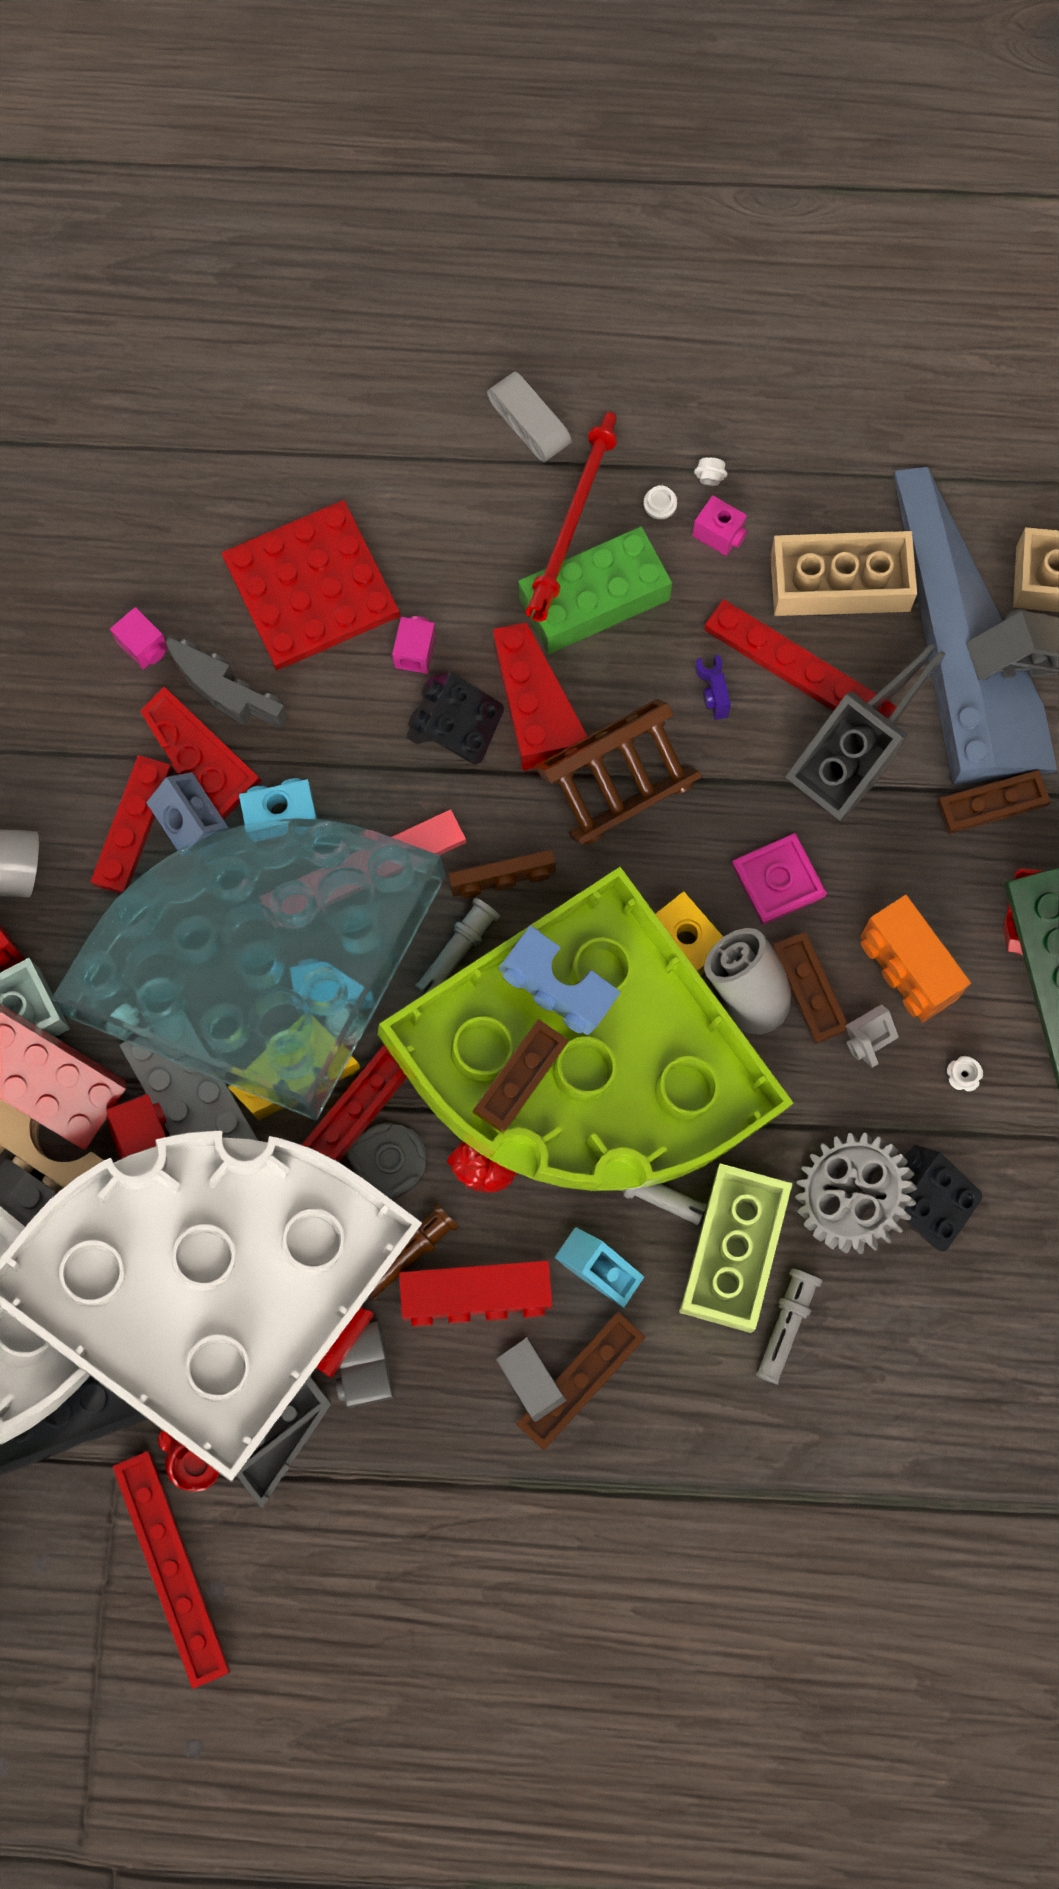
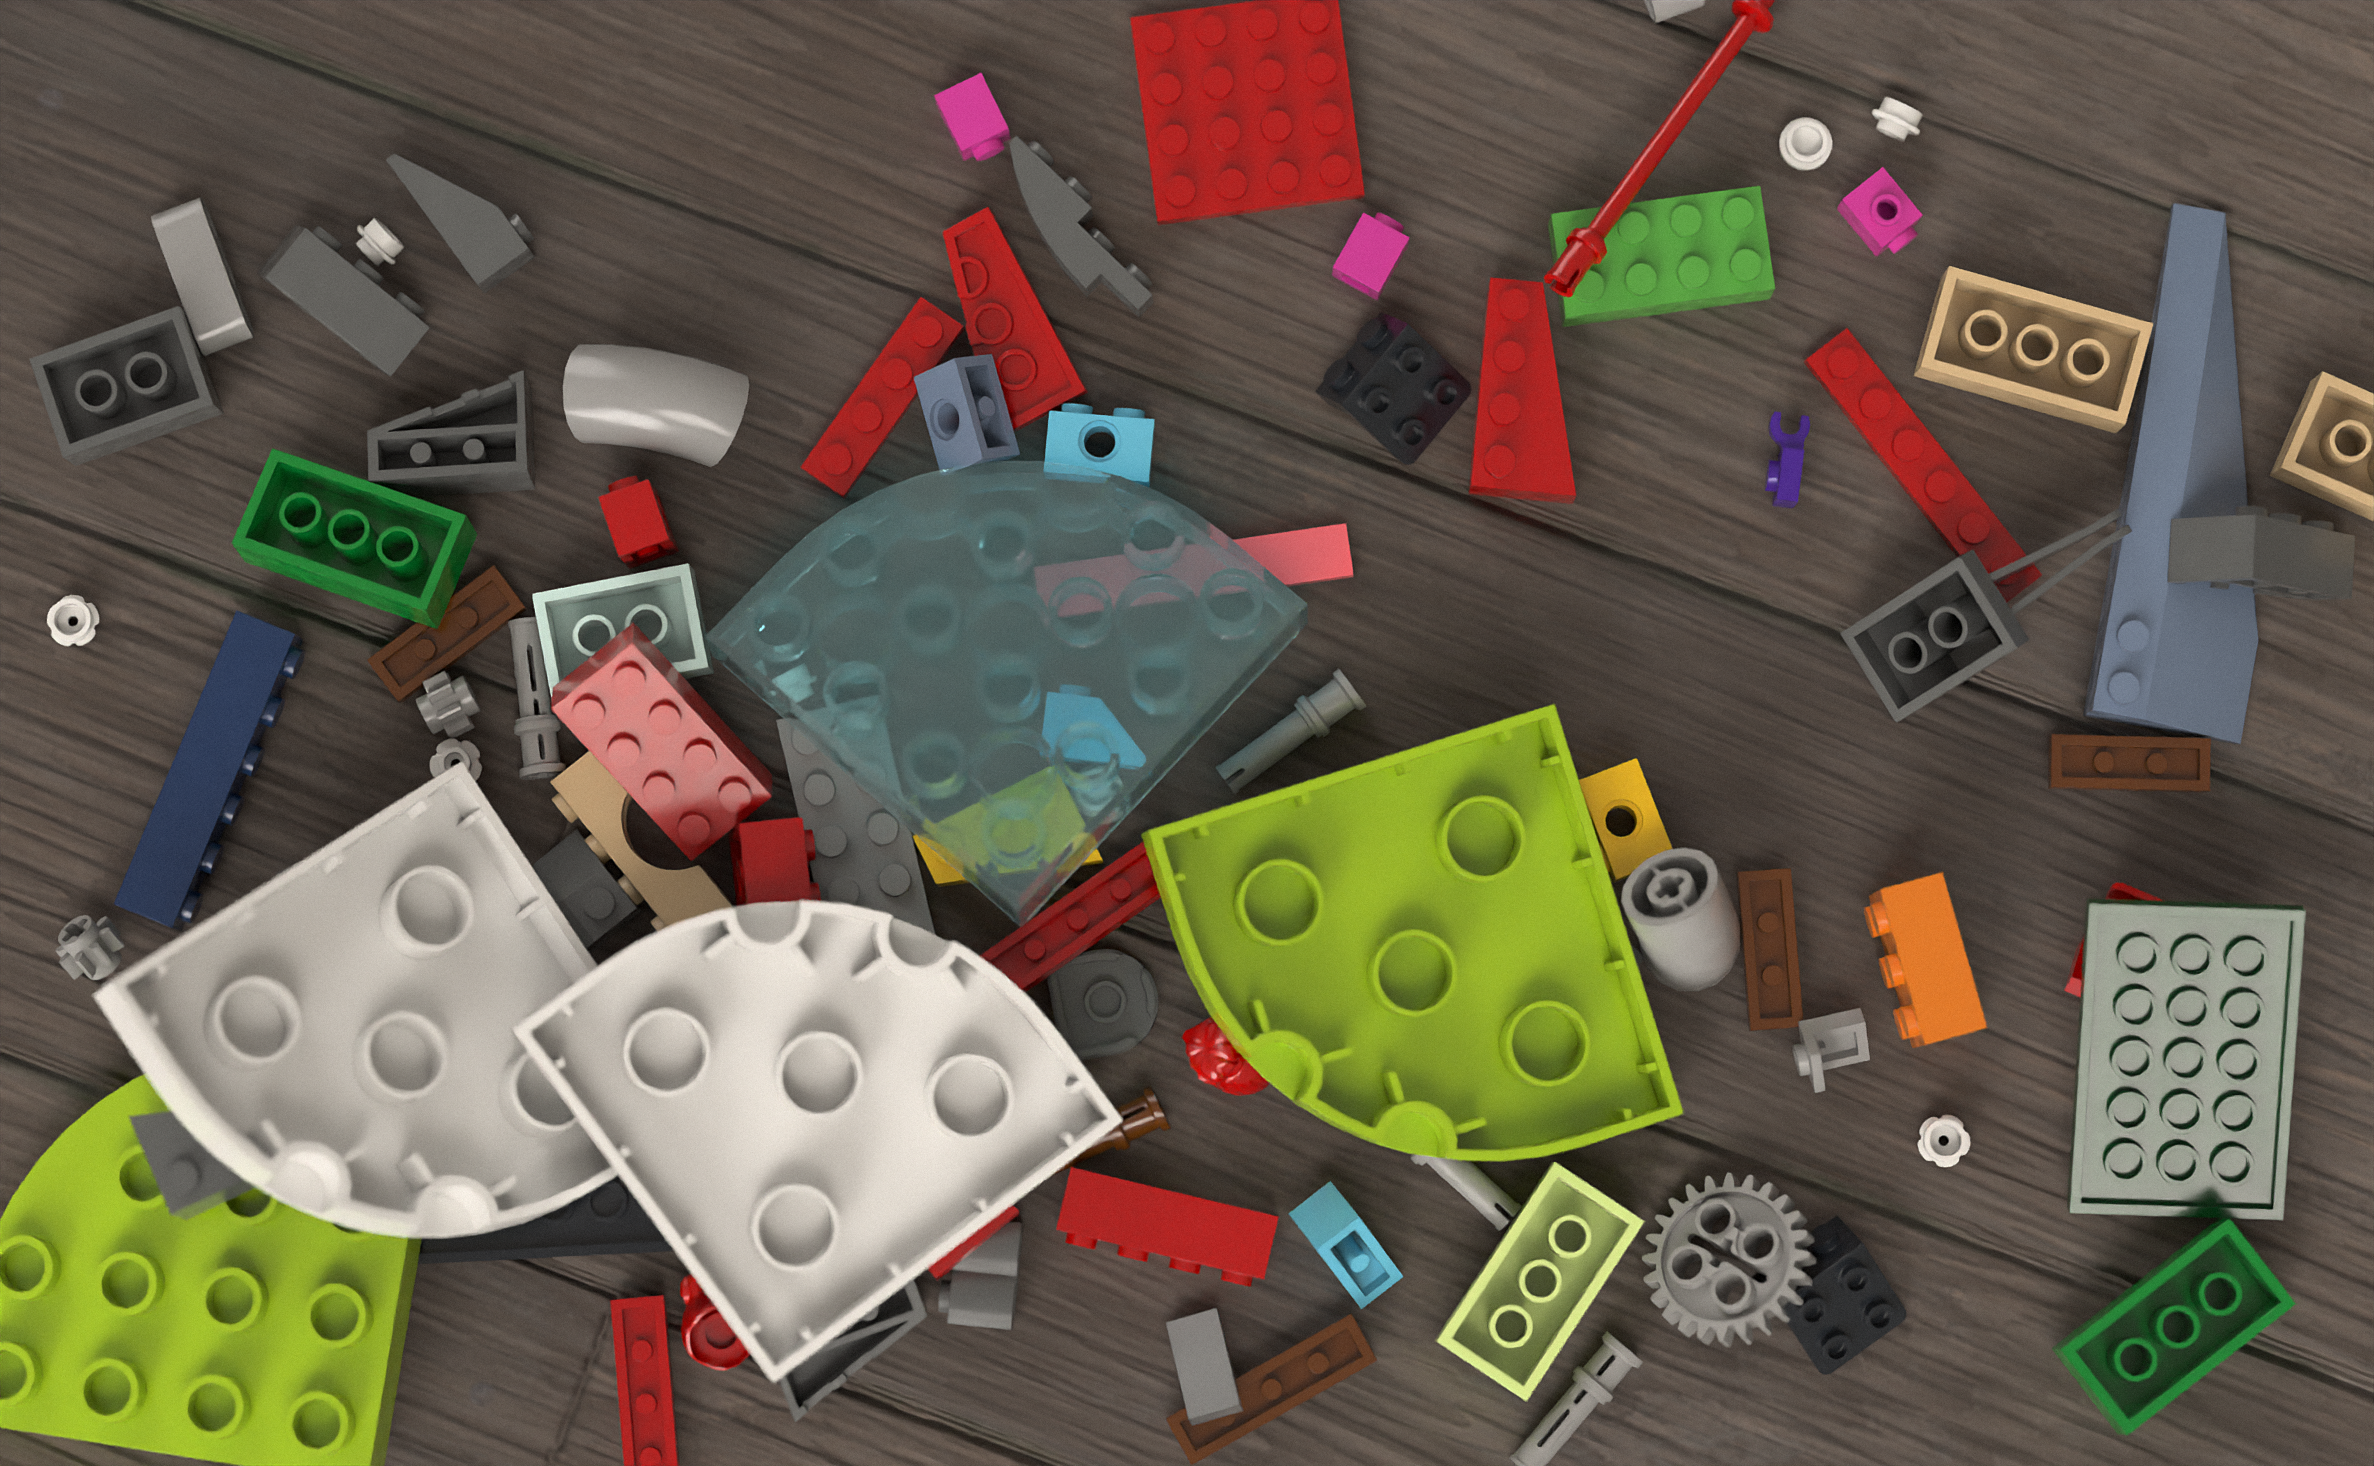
camera: 20 degrees right, 10 degrees up
(502, 874) = (1389, 646): reddish brown plate -> none
(520, 1076) = (1318, 965): reddish brown plate -> none
(578, 1004) = (1380, 816): medium blue arch -> none
(590, 753) = (1592, 505): reddish brown fence -> none
(778, 879) = (1782, 775): dark pink tile -> none

